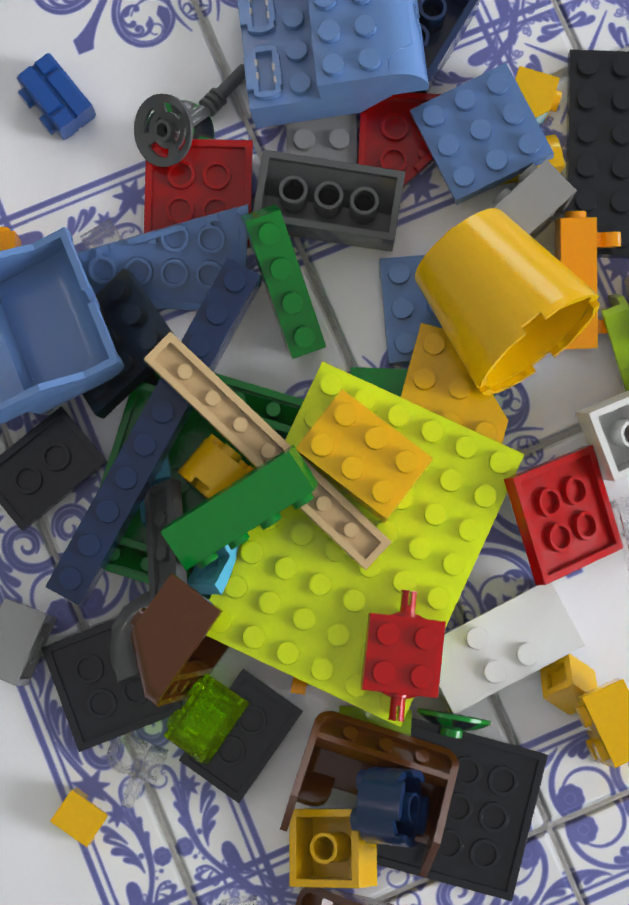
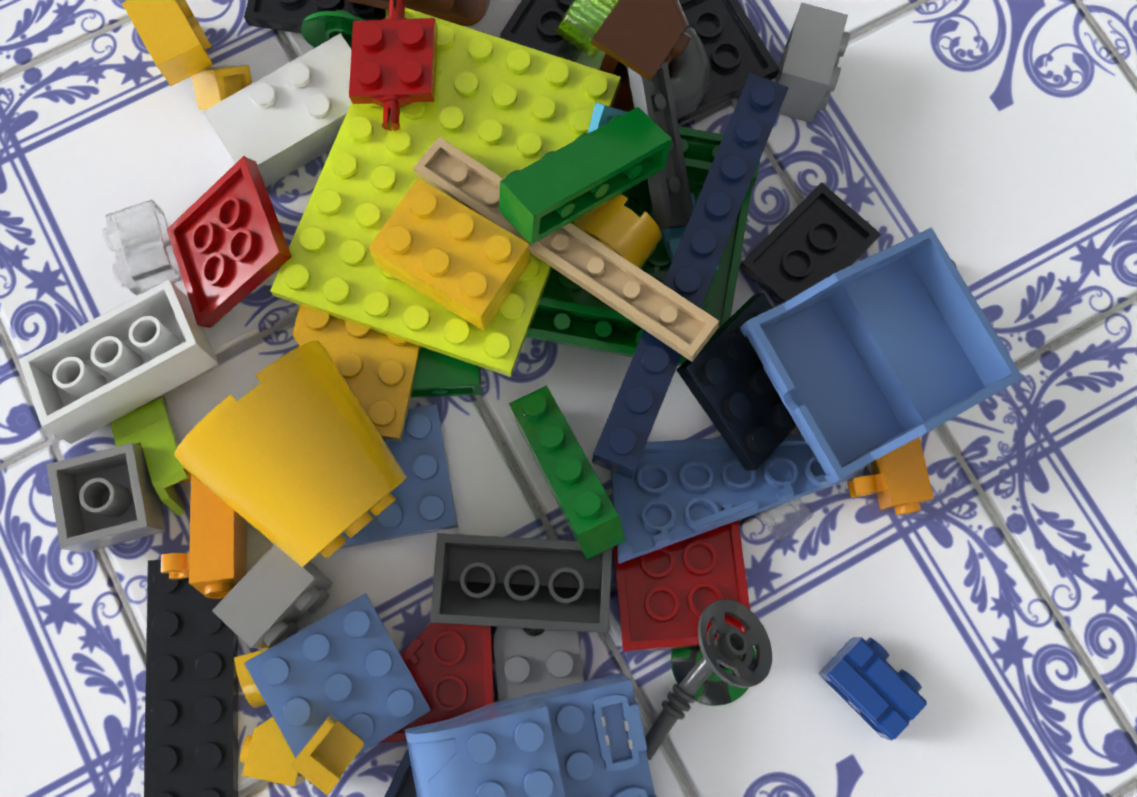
camera: 175 degrees right, 5 degrees down
(490, 77) = (328, 754): none -> yellow panel

